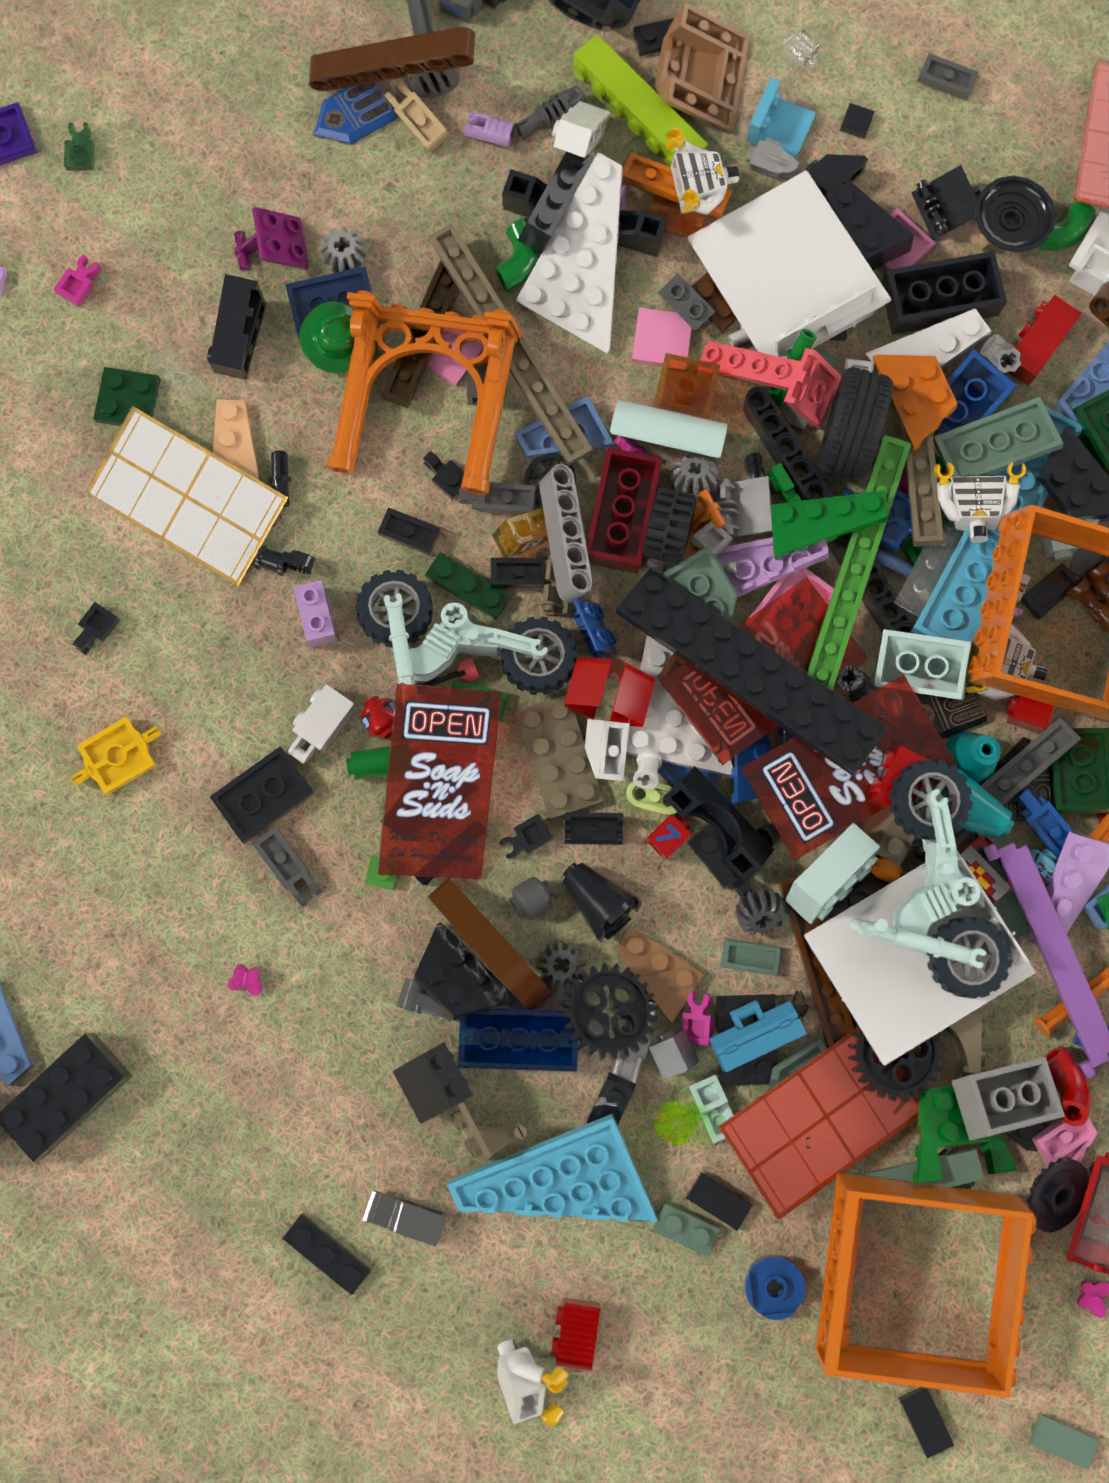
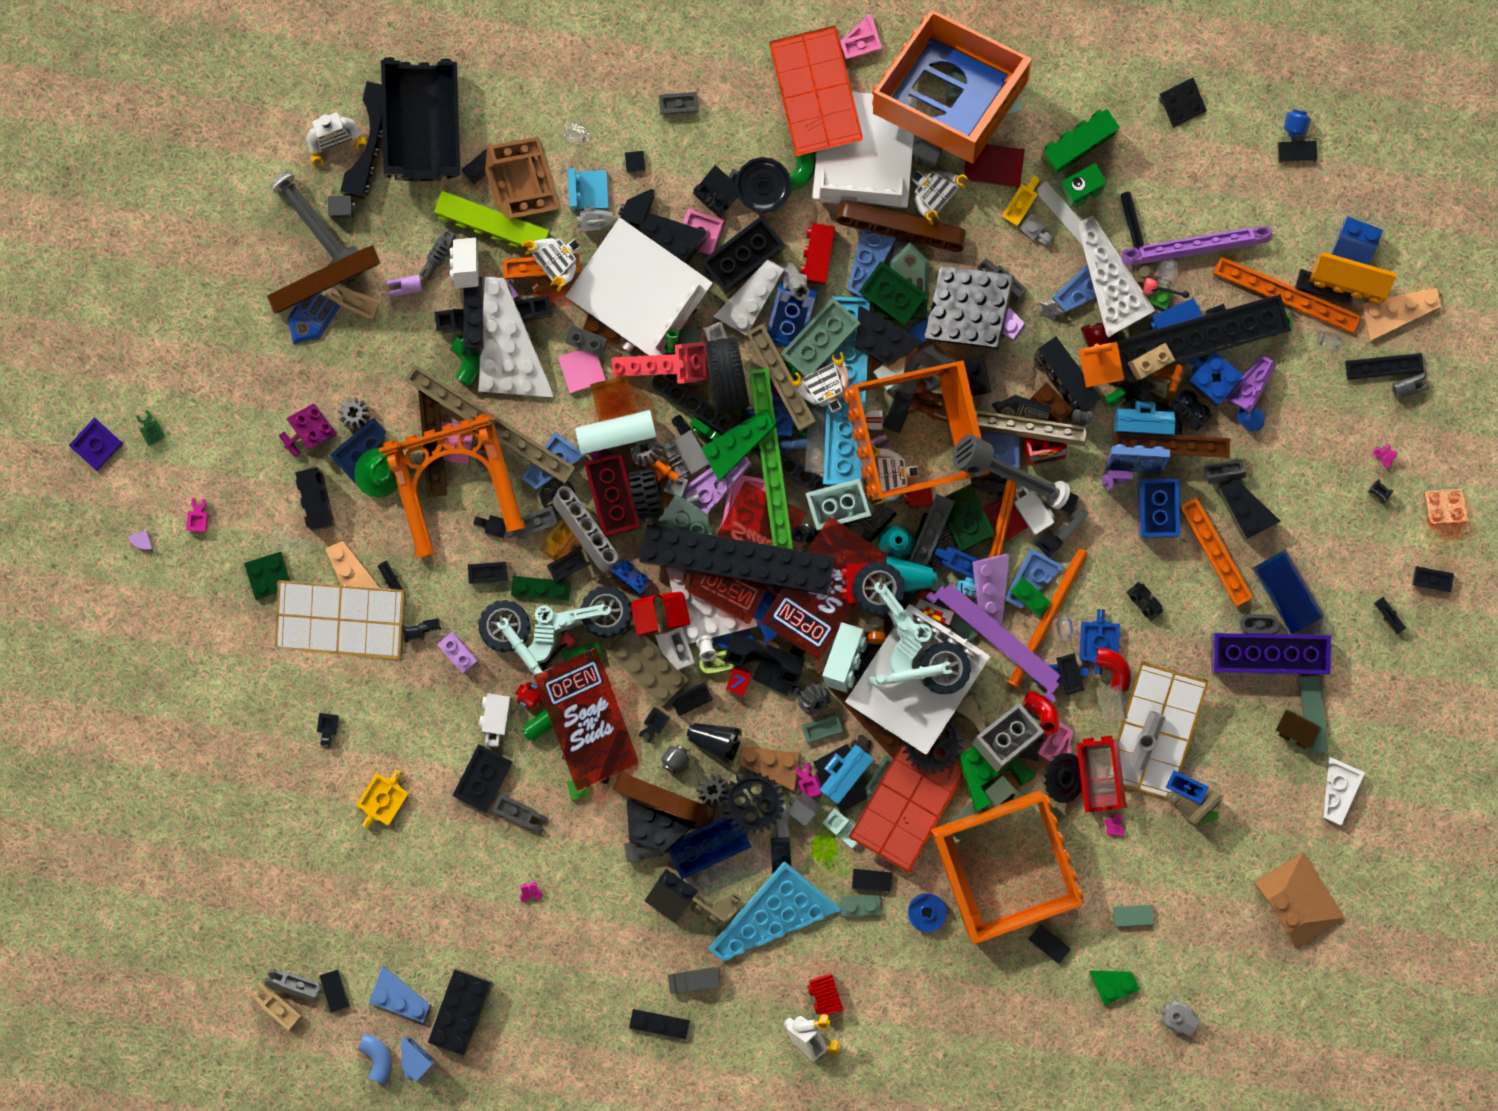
camera: 20 degrees left, 5 degrees up
(919, 393) = (757, 331): orange wing -> none

